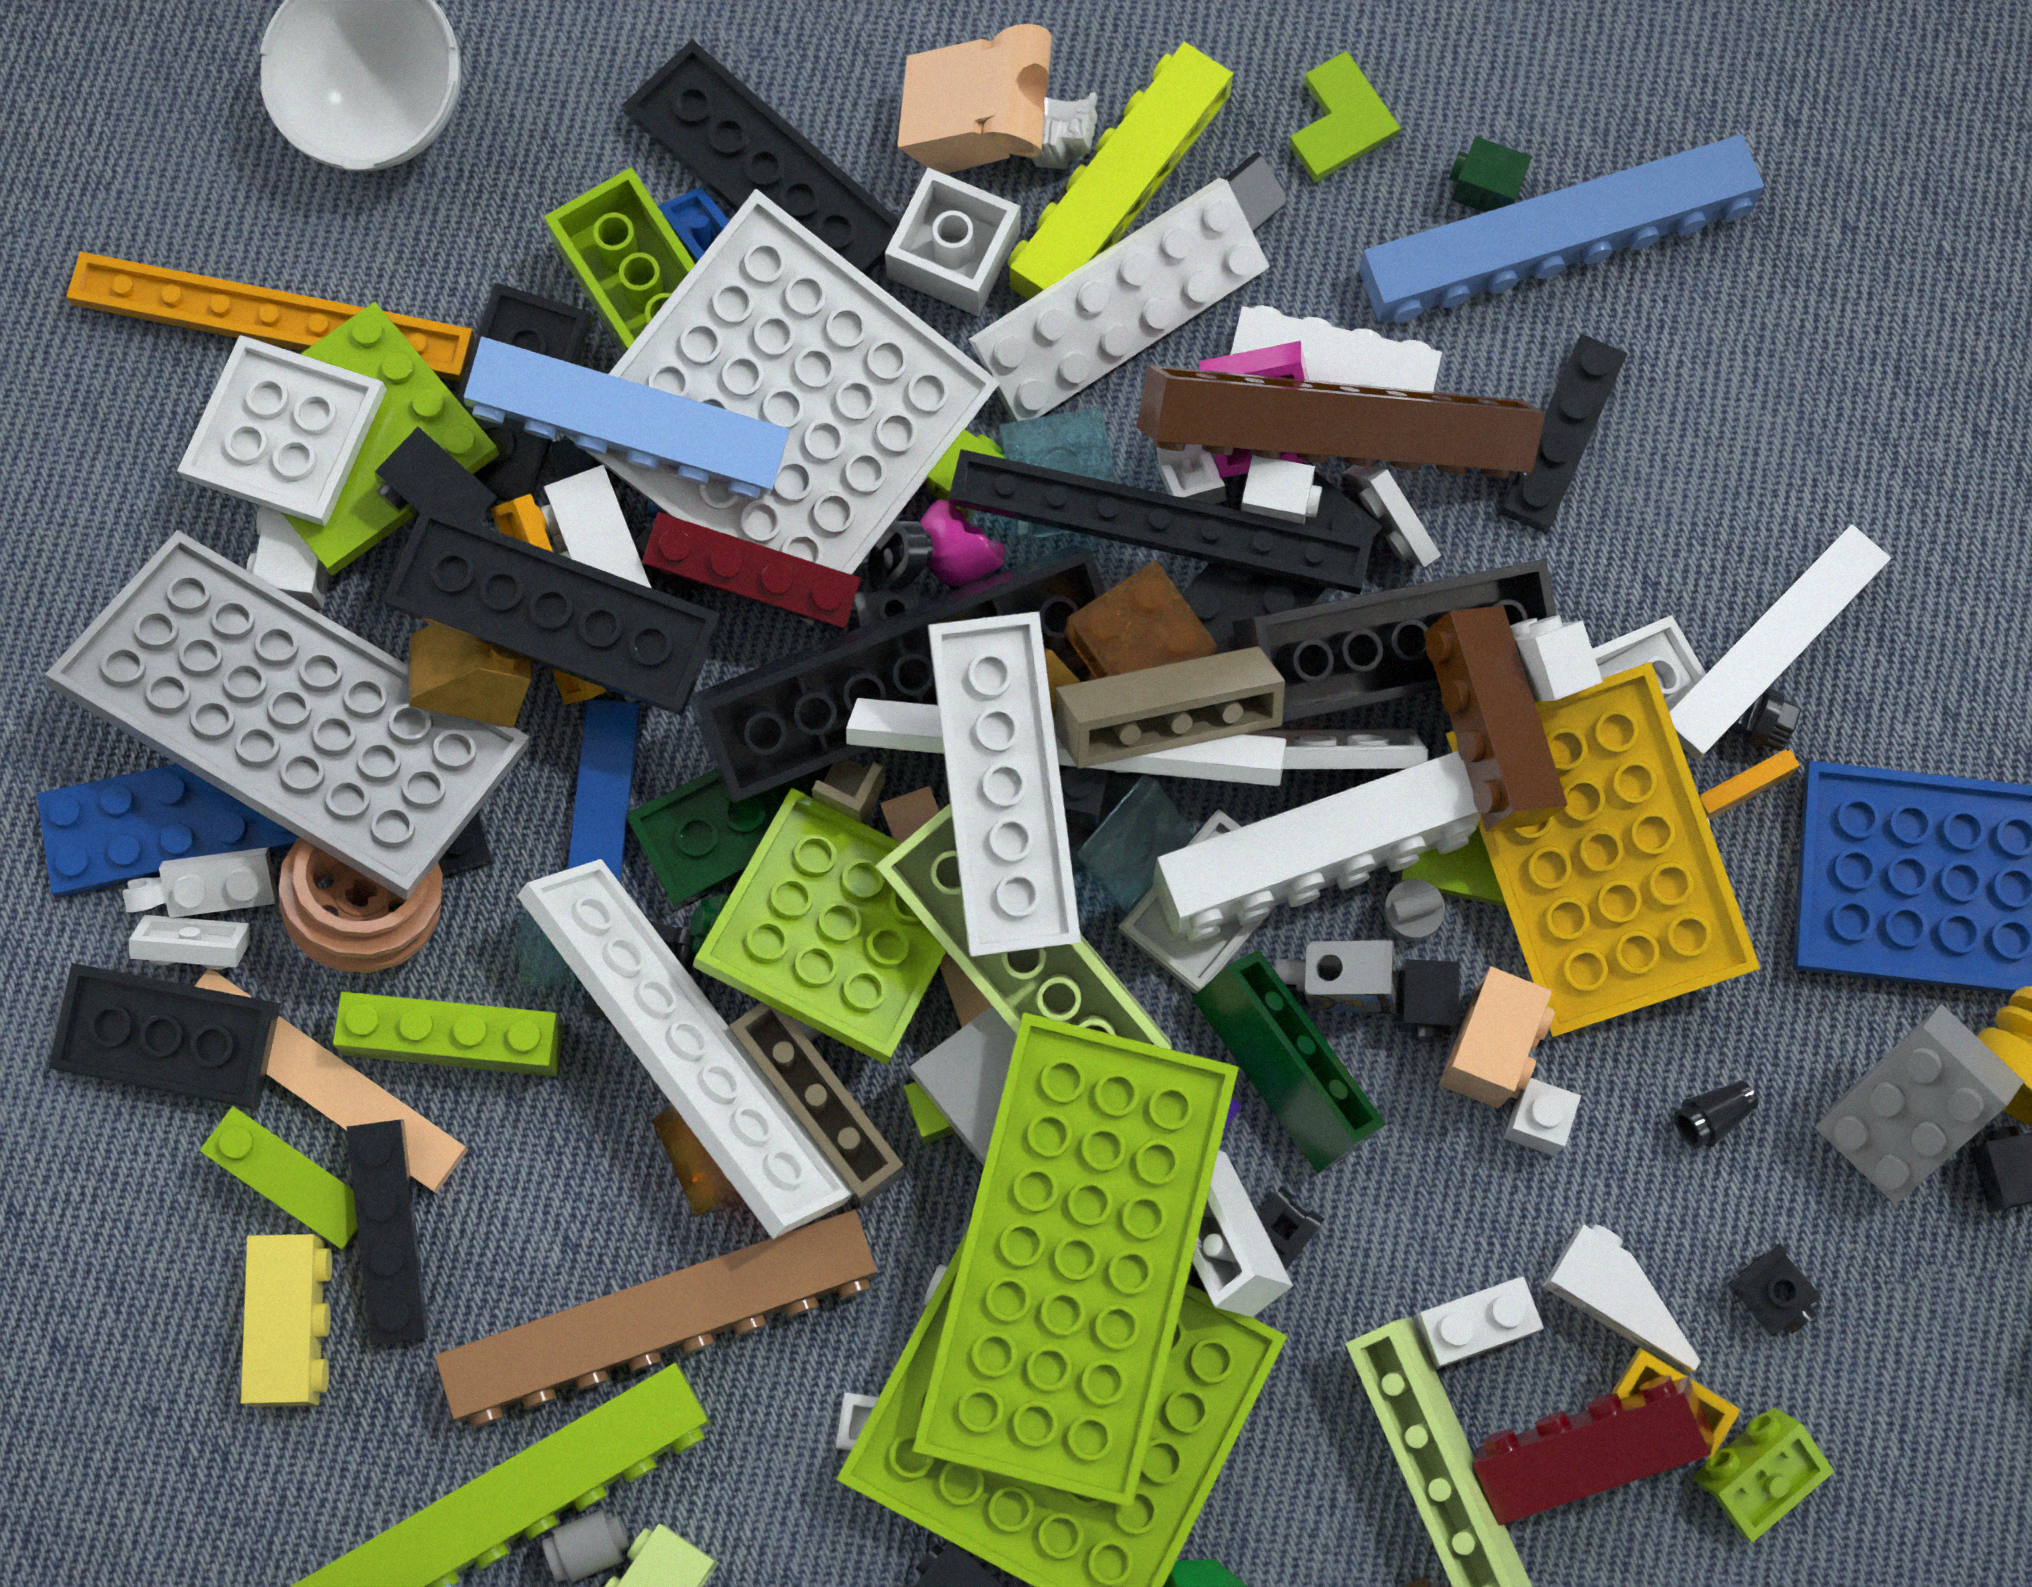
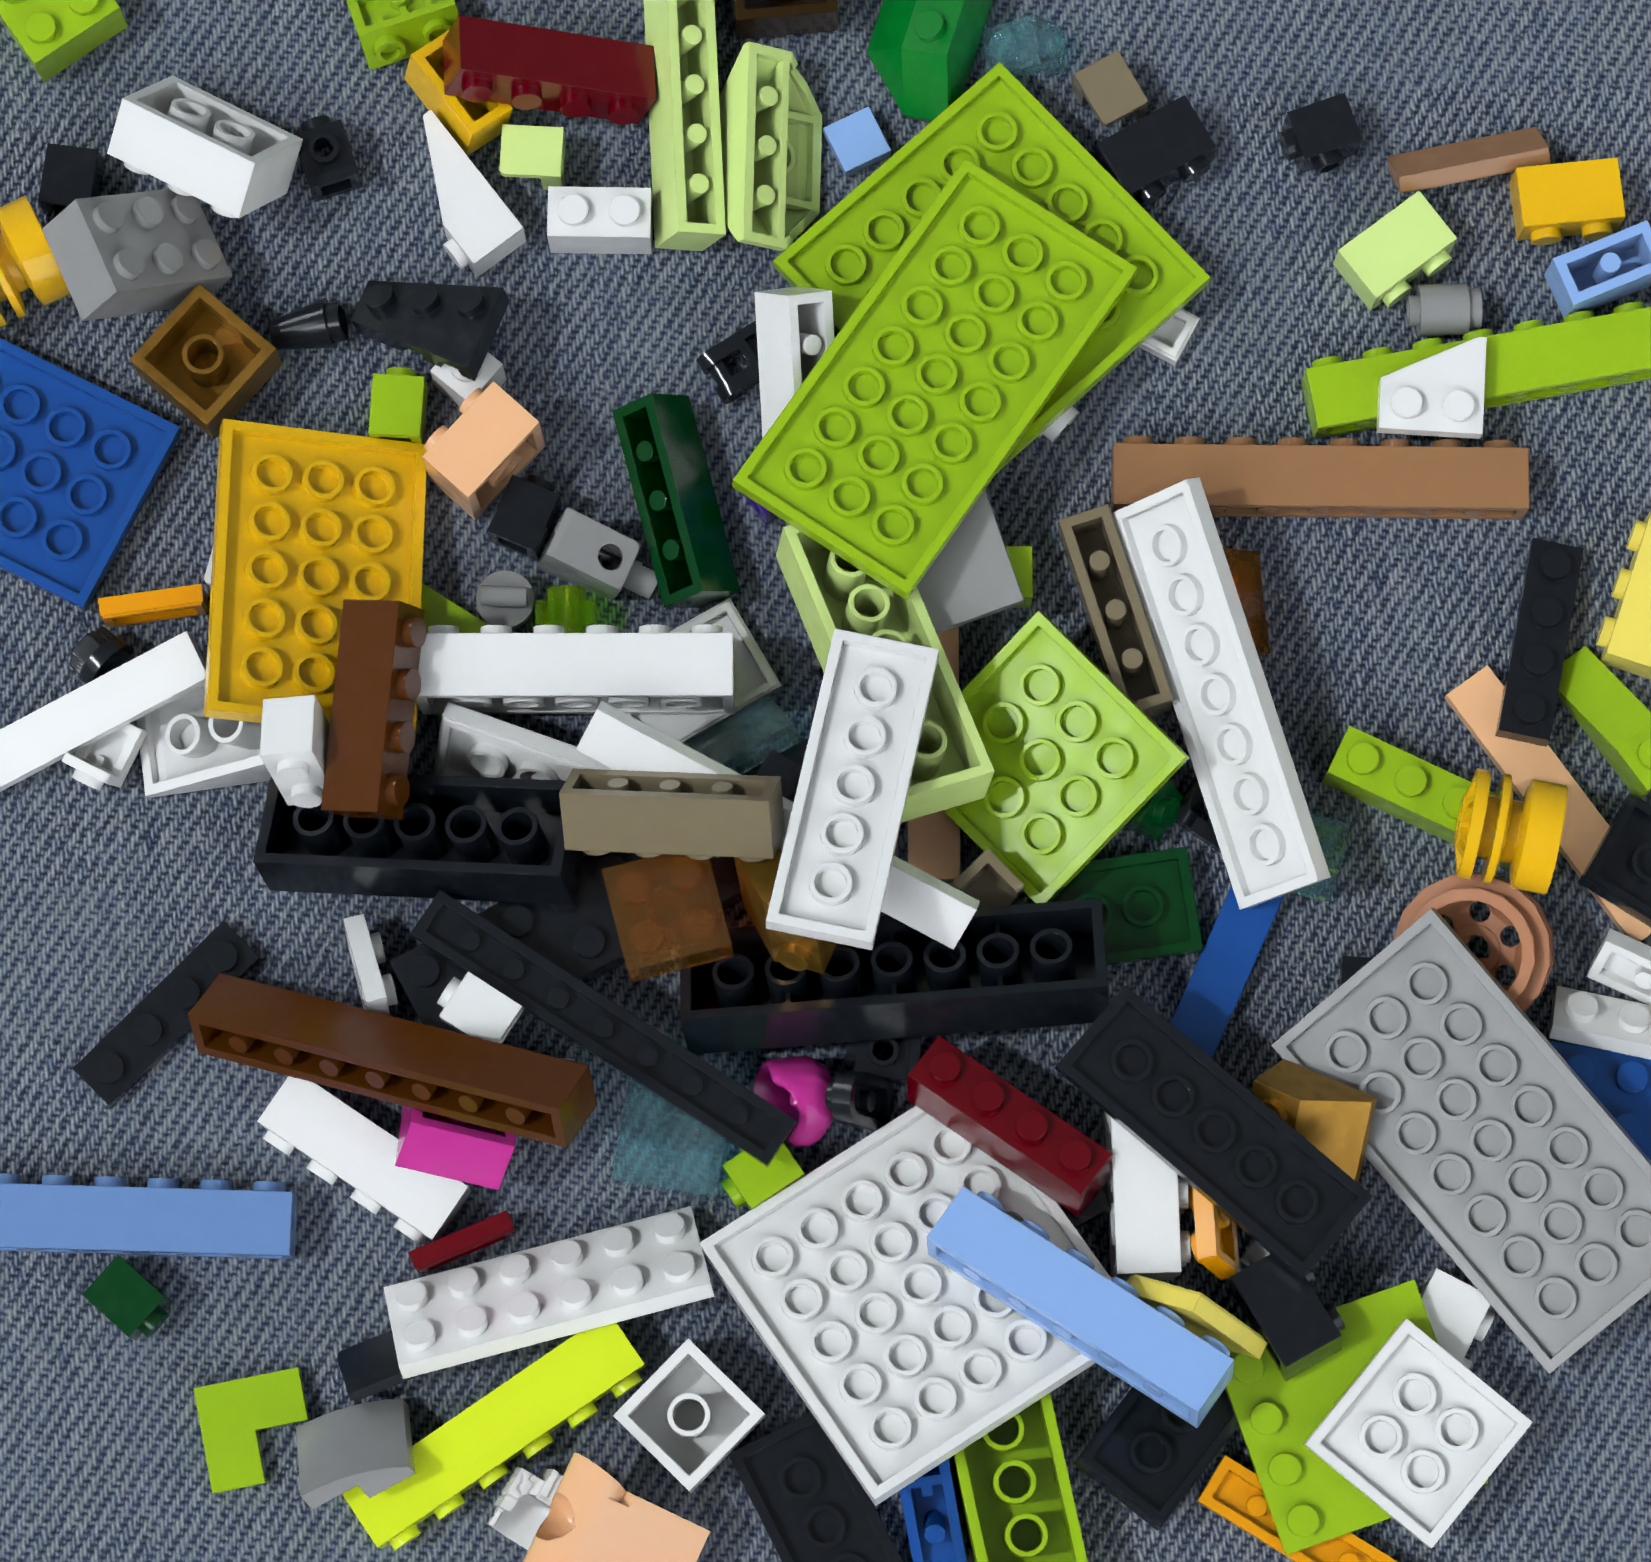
camera: 160 degrees left, 5 degrees up
(344, 992) = (1510, 831): none -> yellow wheel
(518, 452) = (1200, 1315): none -> light yellow tile
(562, 1437) = (1436, 394): none -> white wing
(1213, 323) = (462, 1242): none -> dark red tile
(1236, 110) = (355, 1447): none -> light grey slope
(1252, 1511) = (857, 141): none -> light blue tile
(1335, 1455) = (769, 148): none -> yellowish green wedge
(1350, 914) = (567, 608): none -> clear neon green gear
(1571, 1366) = (533, 153): none -> yellowish green panel
(1595, 1060) = (398, 405): none -> lime brick
(1597, 1149) = (436, 320): none -> black wing
(1722, 626) = (107, 758): none -> white bracket
(1802, 1034) = (206, 360): none -> pearl gold brick
(1902, 1241) = (204, 147): none -> white brick

